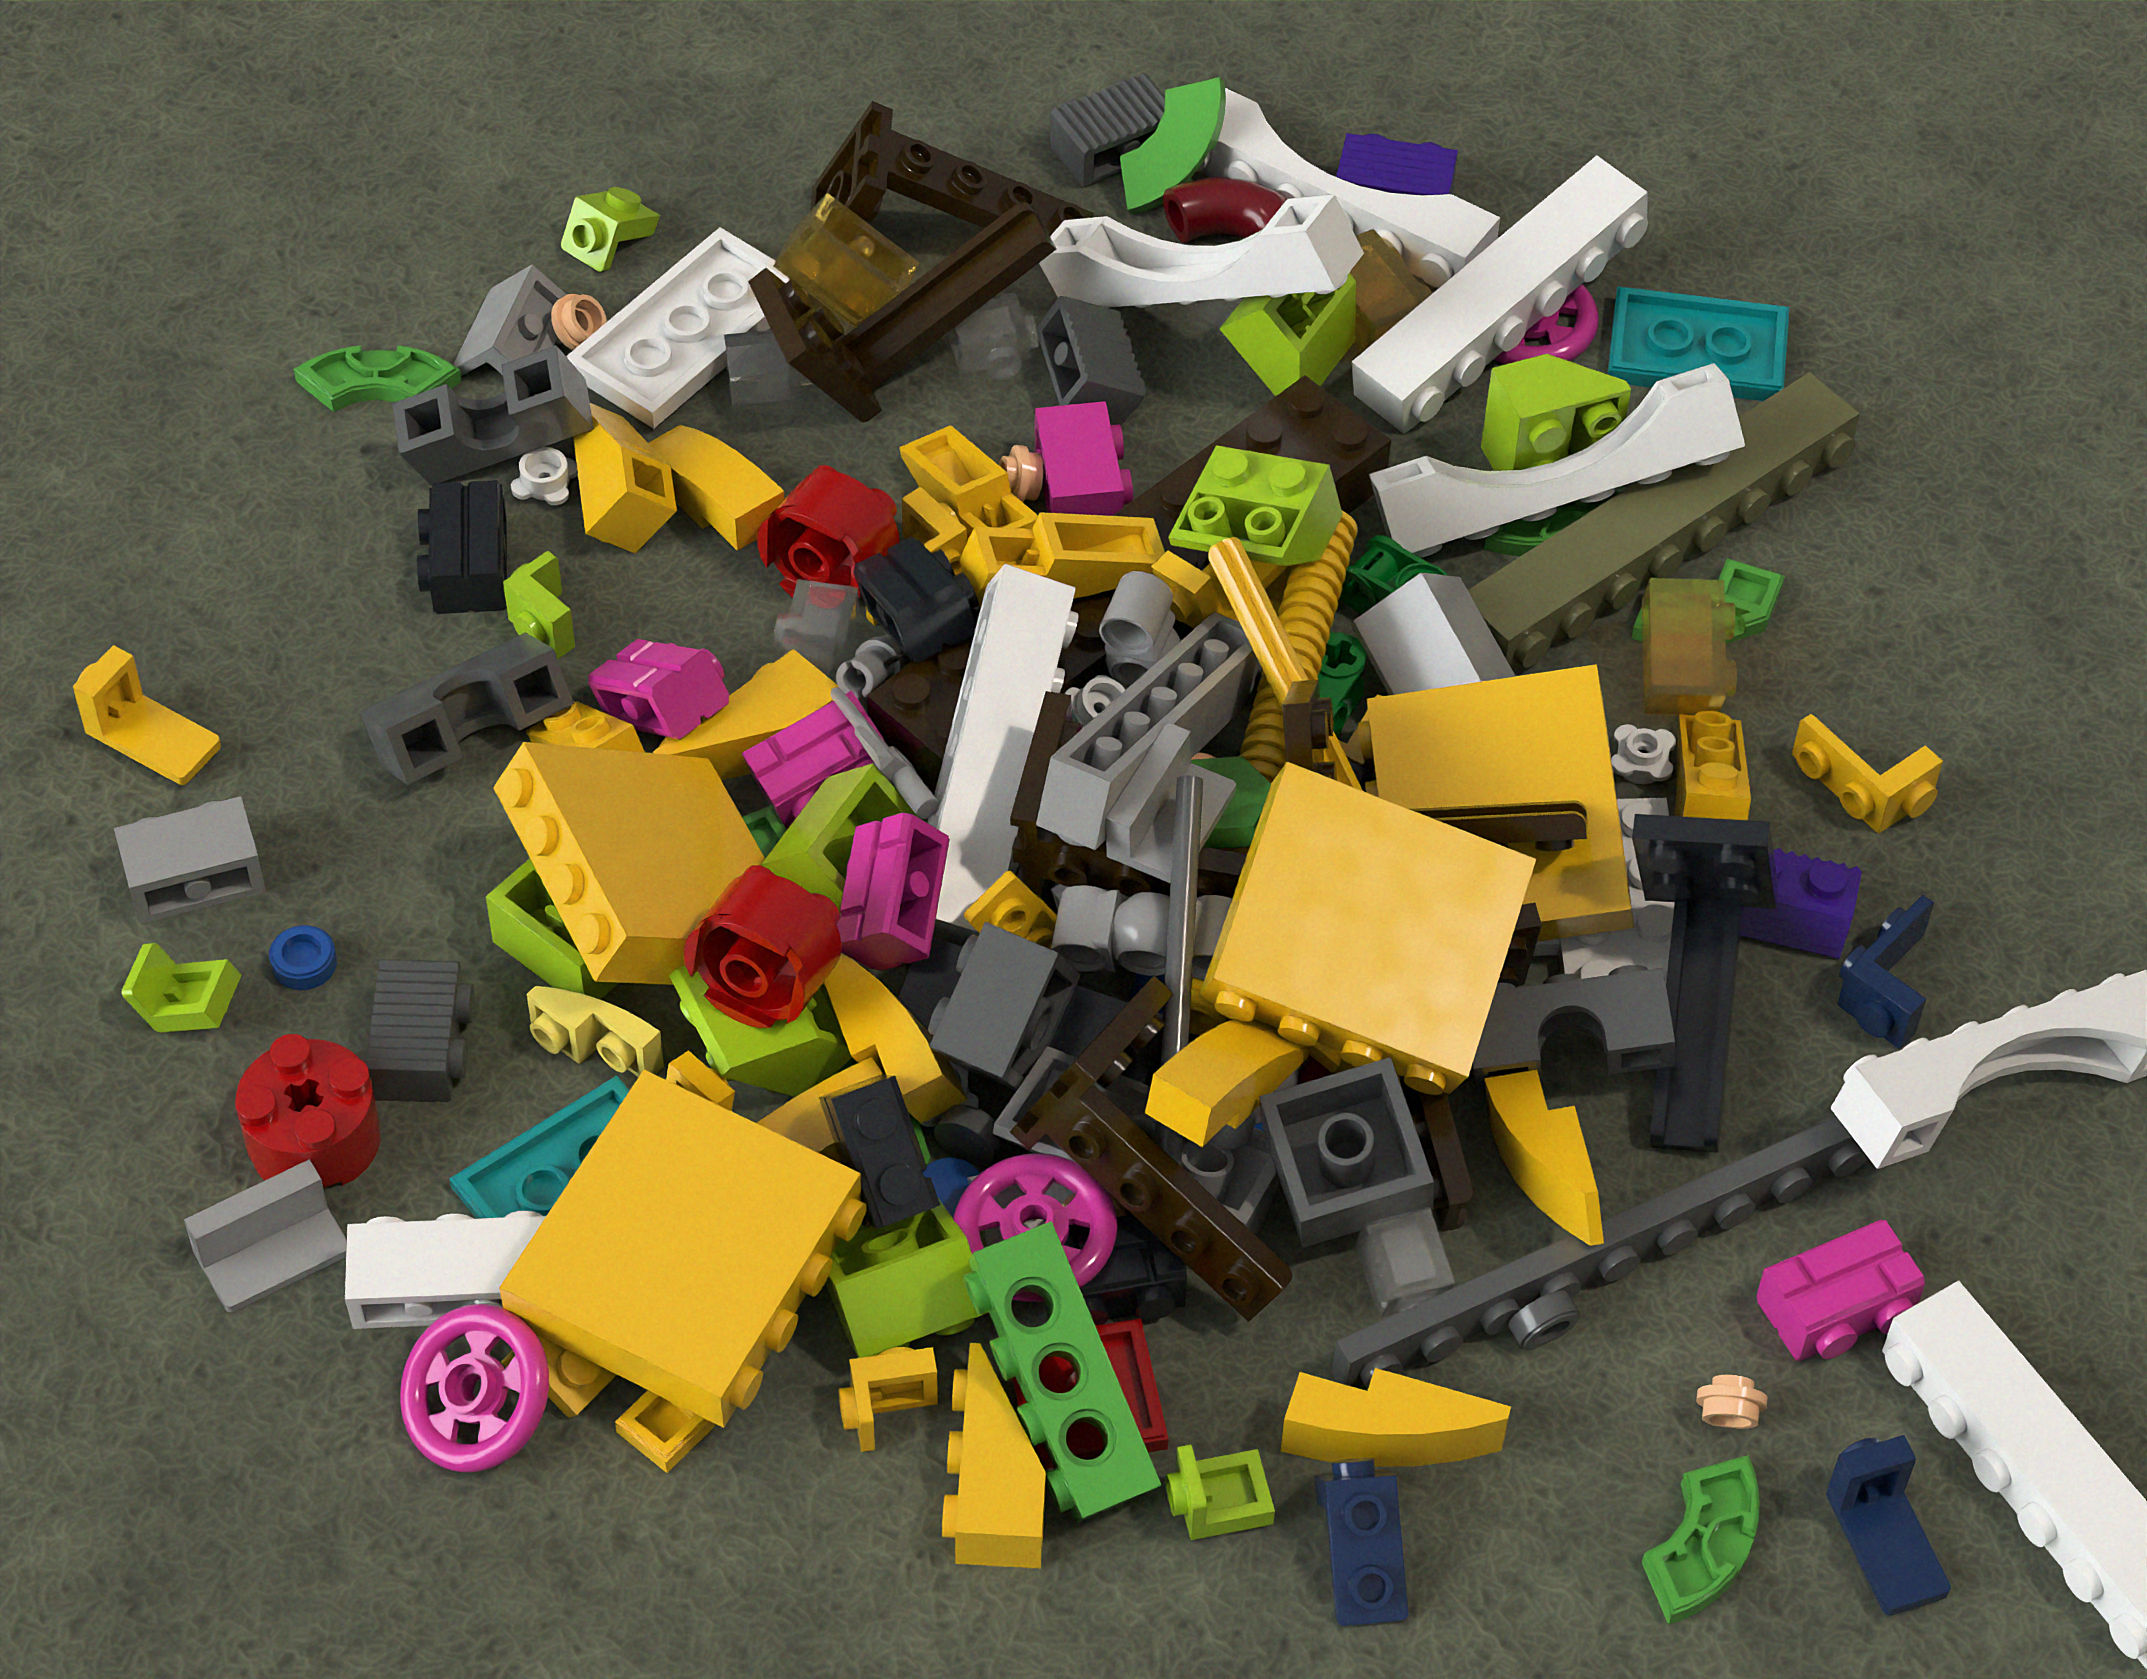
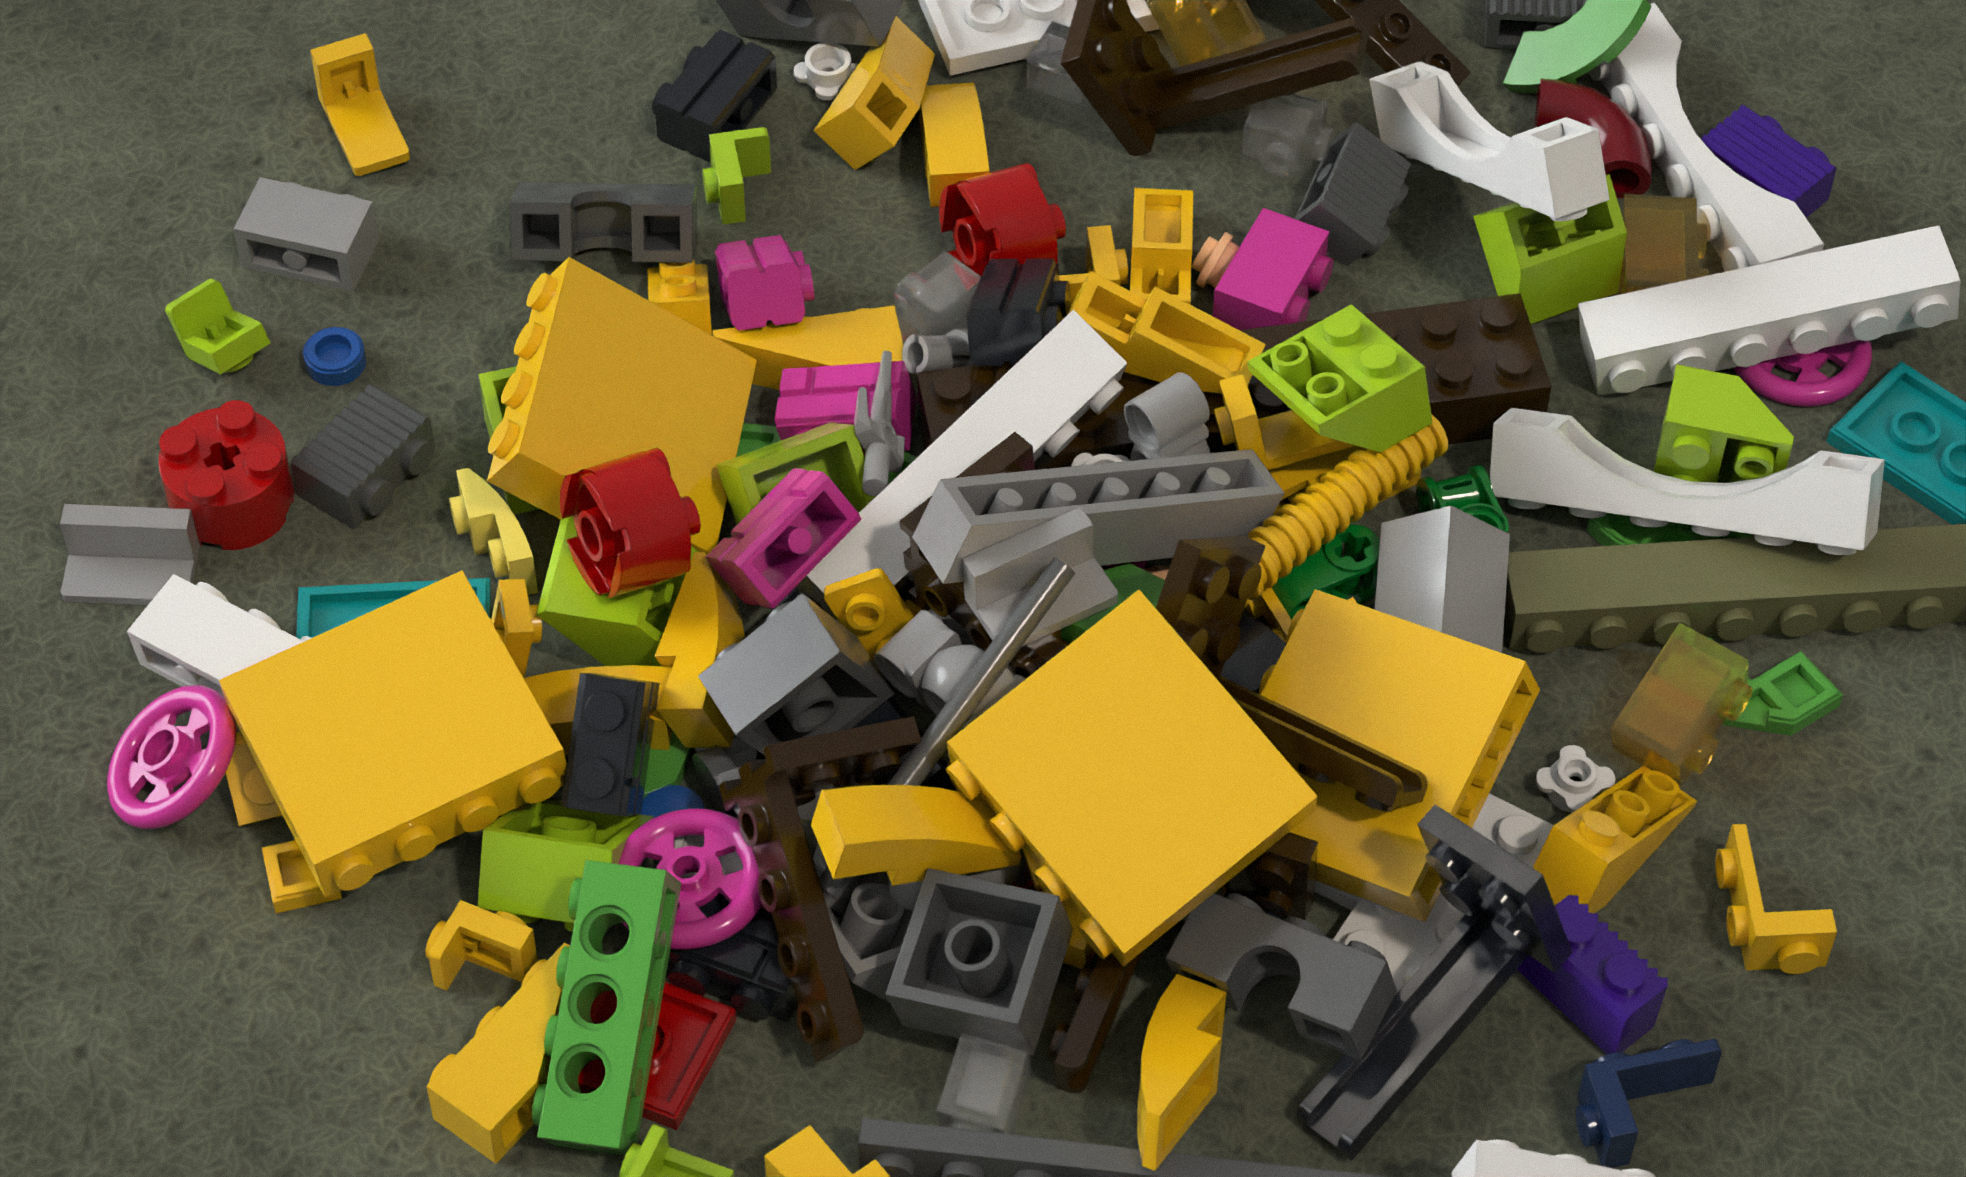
camera: 35 degrees right, 0 degrees up
(1267, 634) = (1261, 524): yellow axle -> none

